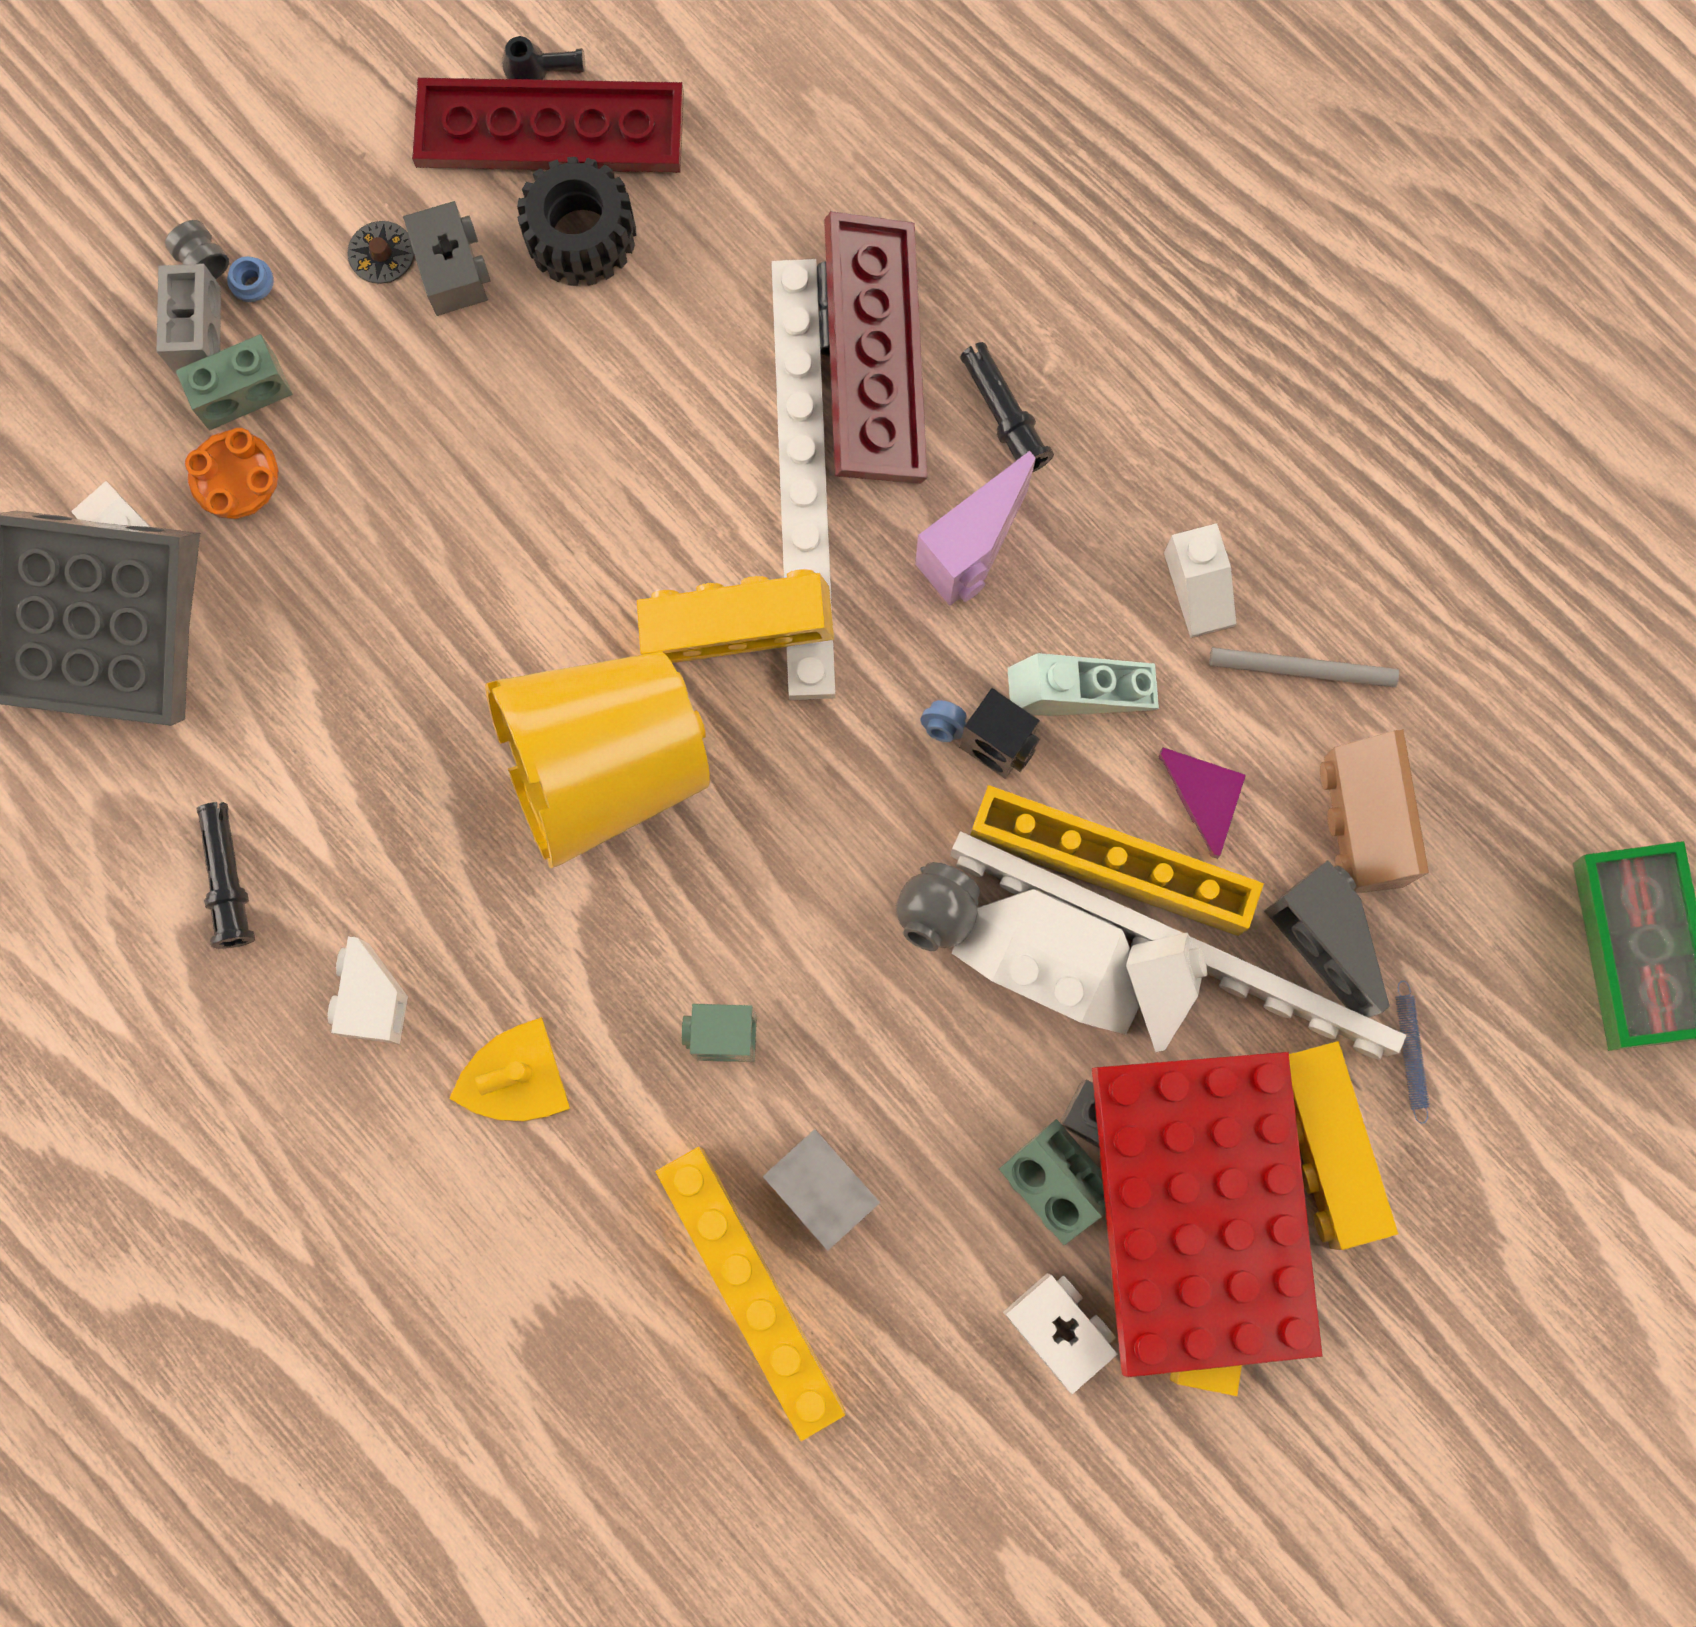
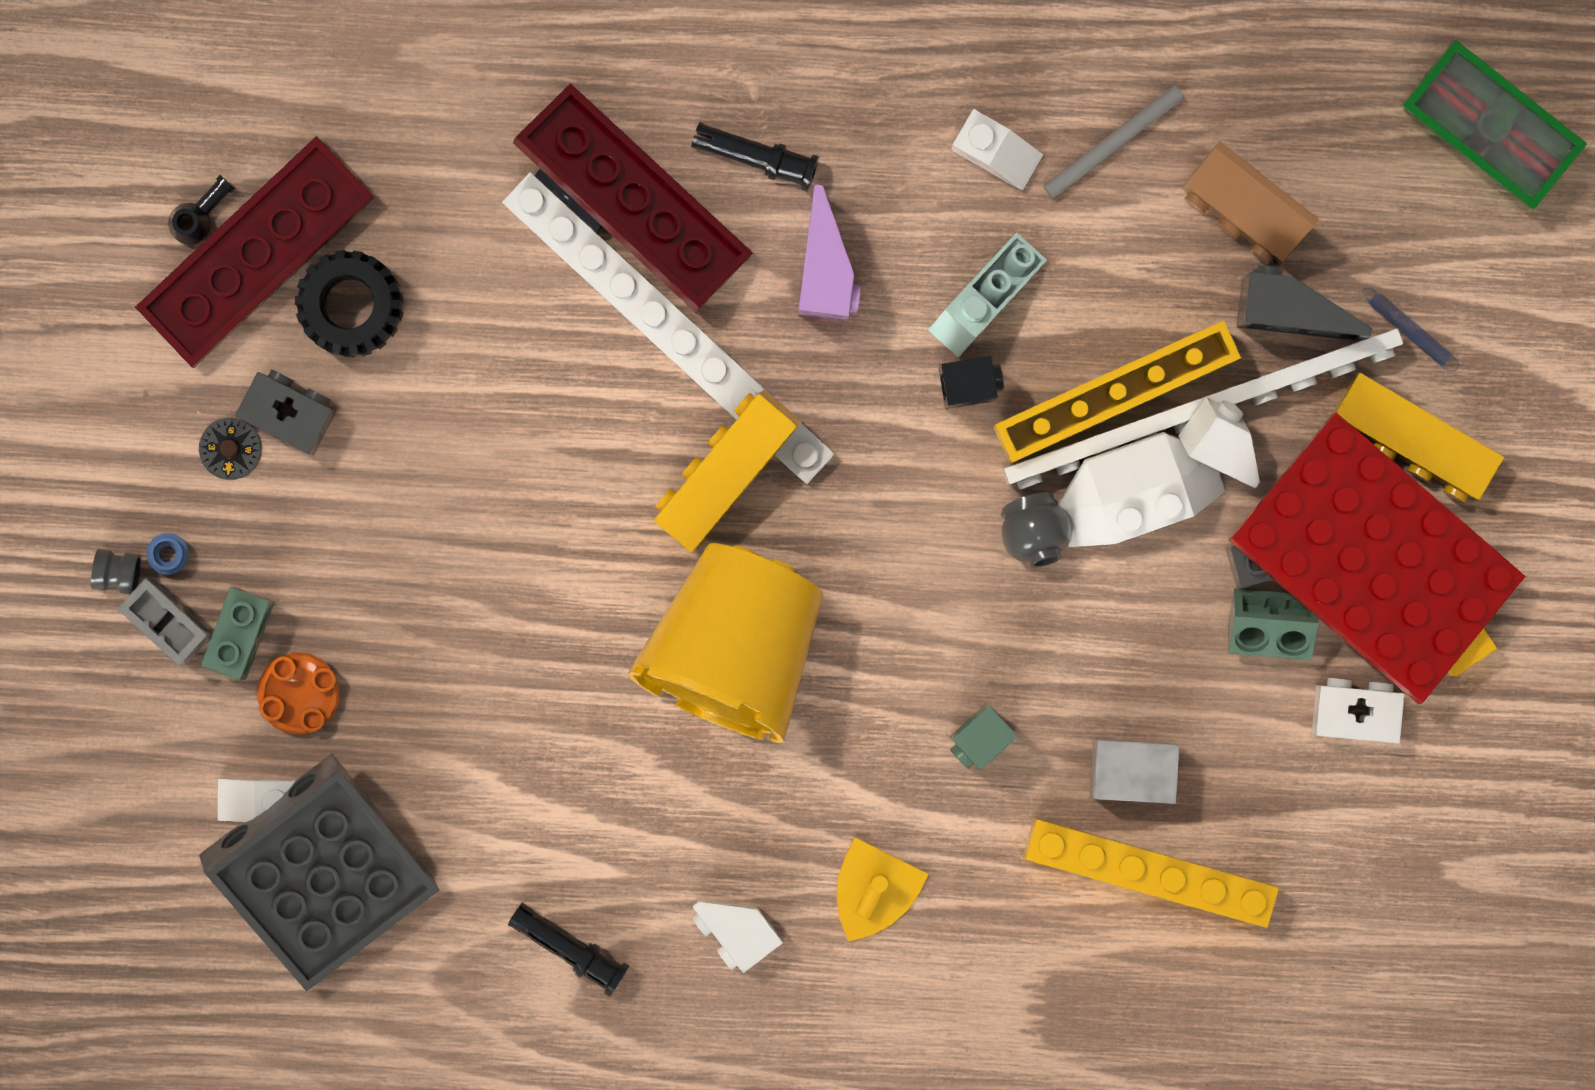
camera: 50 degrees left, 10 degrees up
(944, 721) = (922, 404): medium blue plate -> none
(1206, 793) = (1131, 287): magenta tile -> none

